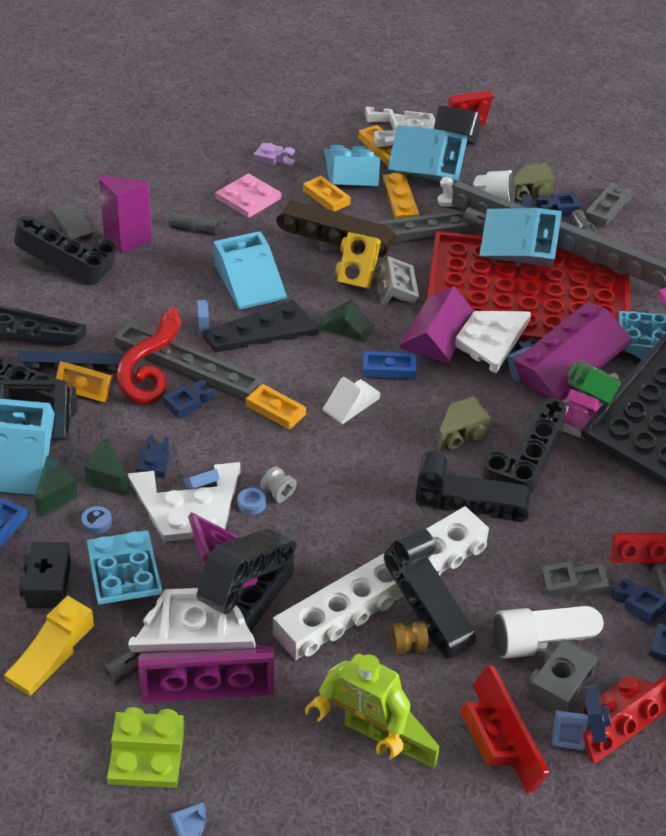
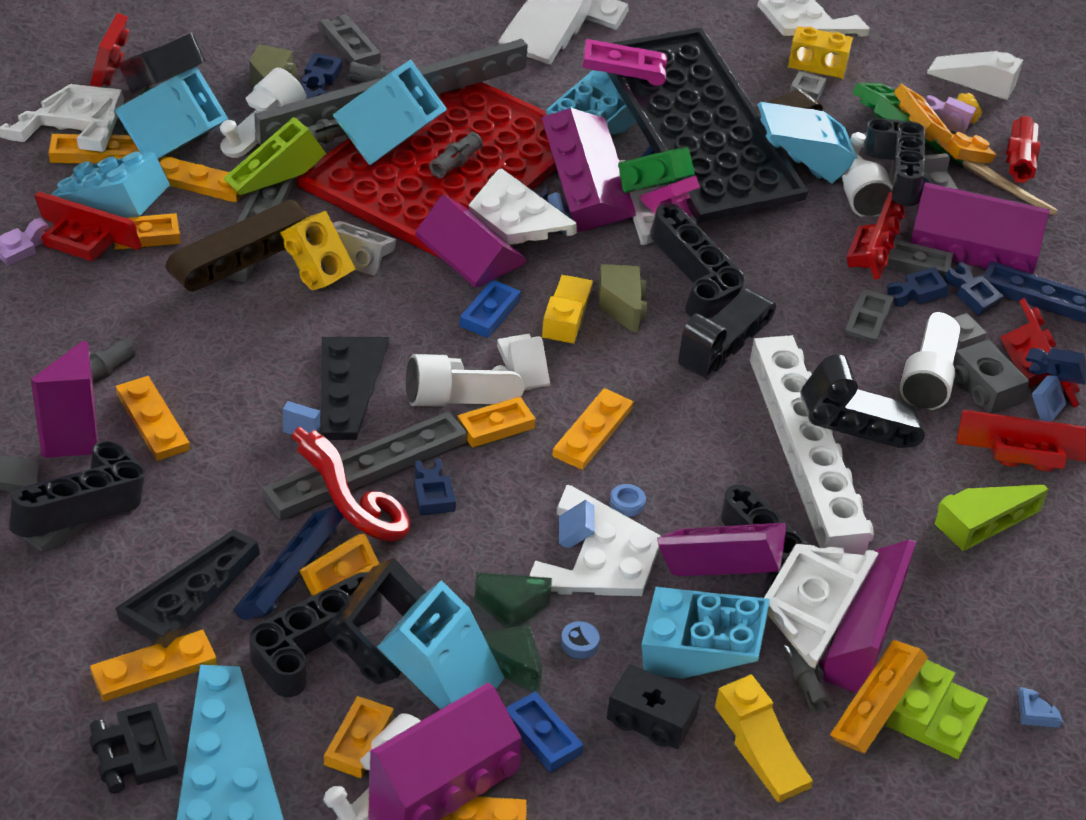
camera: 65 degrees left, 0 degrees up
(119, 698) = (878, 696): none -> light orange plate
(154, 458) = (509, 557): dark blue plate -> none
(164, 260) = (152, 418): none -> light orange plate
(239, 562) = (792, 508): black beam -> none
(248, 195) = (83, 297): bright pink plate -> none
(248, 270) = (248, 349): medium azure slope -> none
(278, 484) = (624, 466): light grey wheel -> none
(289, 365) = (442, 380): none -> white piece
(297, 170) = (83, 229): none -> red bracket
(312, 459) = (593, 429): none -> light orange plate
(347, 322) = (392, 312): clear green slope -> none
(370, 693) = (980, 497): lime torso -> none
(405, 399) = (567, 309): none -> yellow slope
(409, 638) = (890, 456): pearl gold wheel -> none
(435, 212) = (279, 158): none -> lime slope
(525, 287) = (445, 162): none -> dark grey pin
(616, 648) = (970, 331): none -> light grey plate

